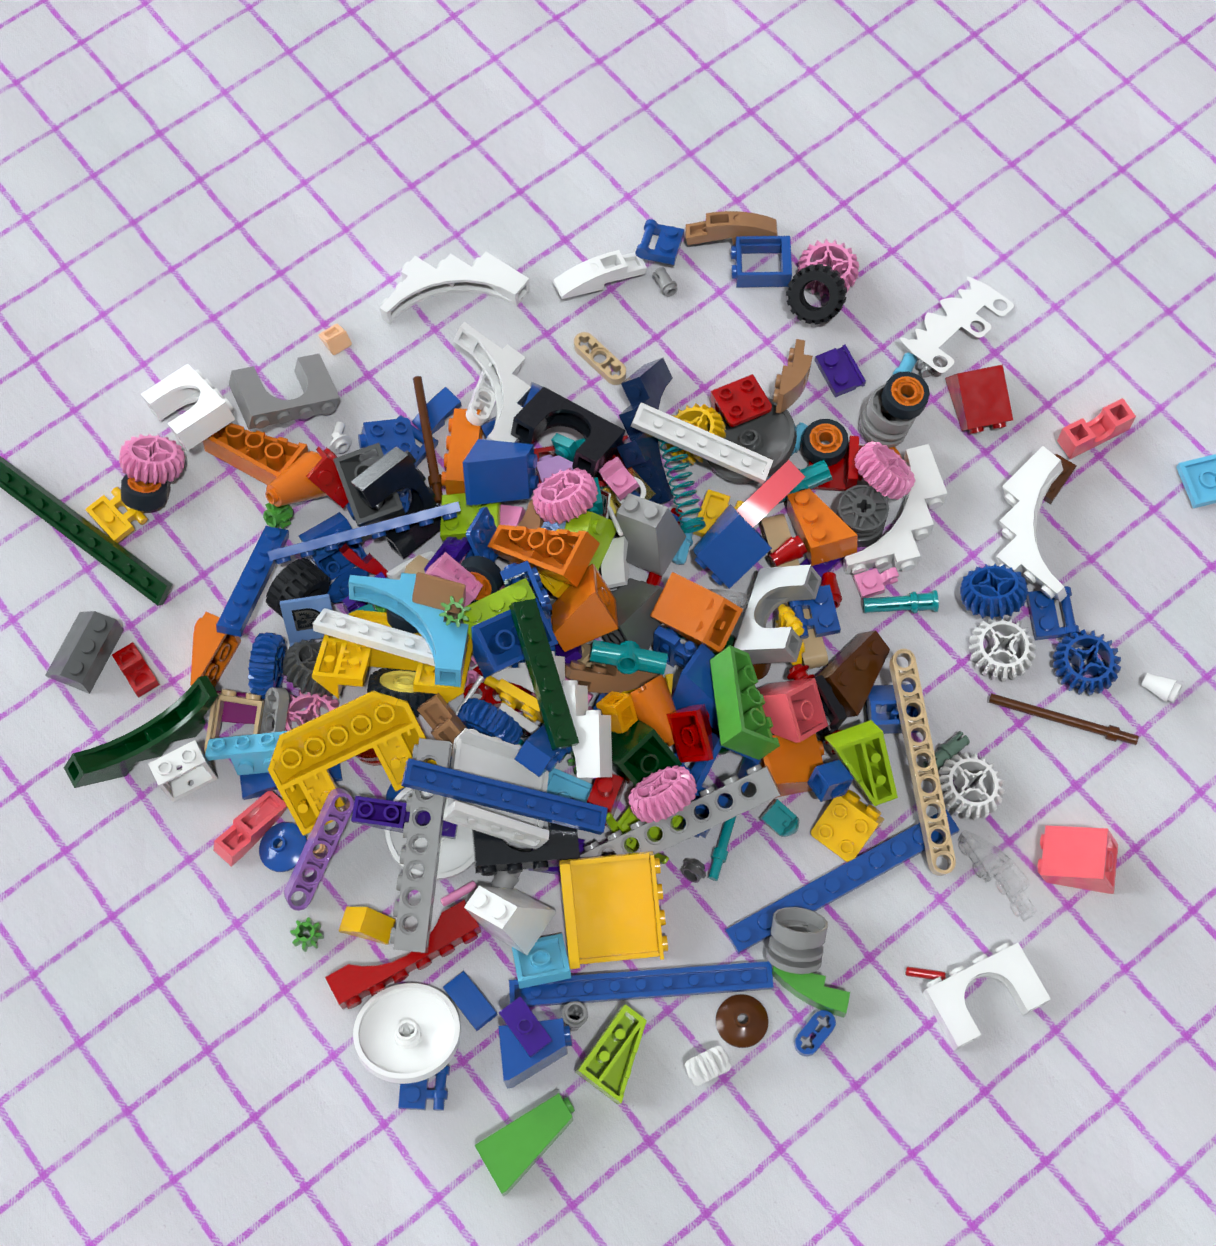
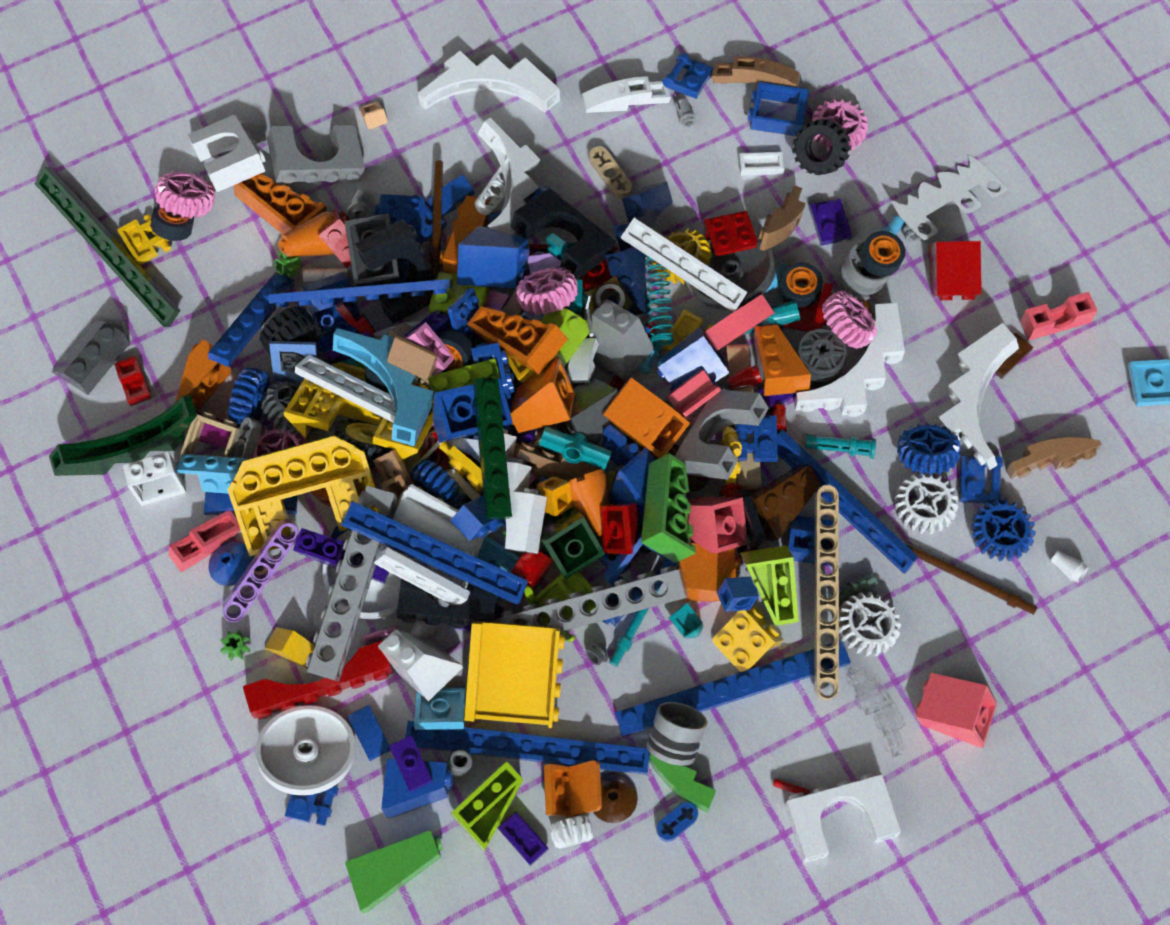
camera: 10 degrees right, 0 degrees up
(310, 520) = (316, 274): none -> white piece
(451, 617) = (416, 372): bright green gear -> none
(618, 478) = (600, 283): bright pink bracket -> none
(657, 1082) = (523, 838): none -> dark purple plate
(662, 794) = (579, 577): bright pink gear -> none
(700, 1020) = (572, 789): none -> orange bracket
(738, 577) = (692, 393): none -> coral panel
(755, 321) = (761, 163): none -> white tile
(872, 583) = (817, 421): bright pink plate -> none
(929, 669) = (850, 507): none -> blue plate
(1121, 571) = (1058, 452): none -> medium nougat slope

